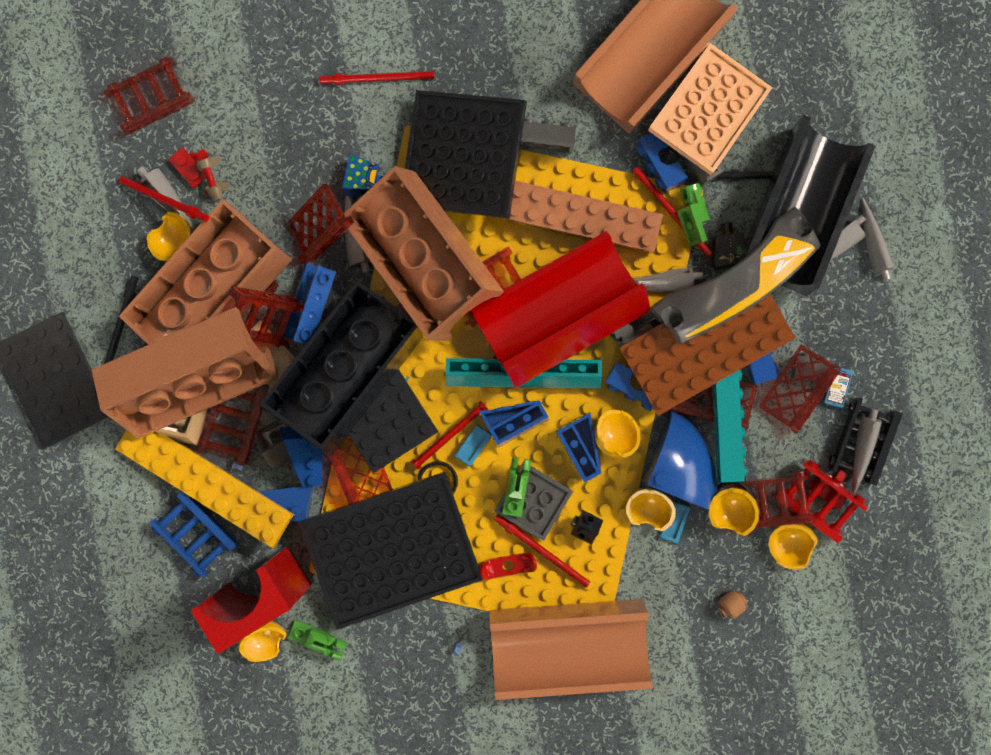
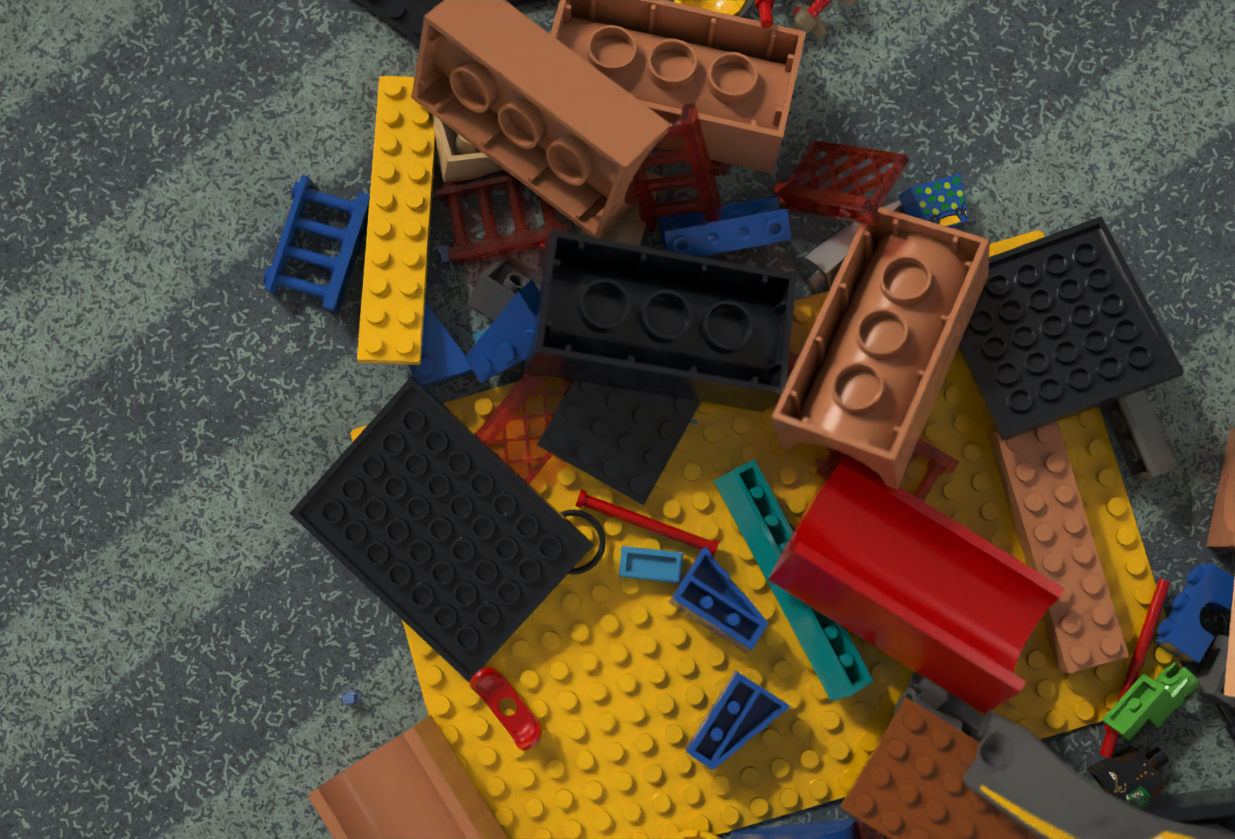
camera: 65 degrees right, 5 degrees down
(233, 615) = (235, 354): red piece -> none
(262, 643) = (218, 415): yellow cylinder -> none
(317, 640) = (260, 494): bright green plate -> none
(339, 79) = (1052, 106): red bar -> none
(511, 528) = (562, 683): red bar -> none
(516, 488) = (625, 659): bright green plate -> none
(542, 503) = (619, 693): dark grey plate -> none
(586, 526) = (623, 789): black brick -> none
(617, 434) = (780, 762): yellow cylinder -> none
(620, 380) = (856, 723): blue arch -> none
(670, 280) = (1042, 721): light grey piece -> none

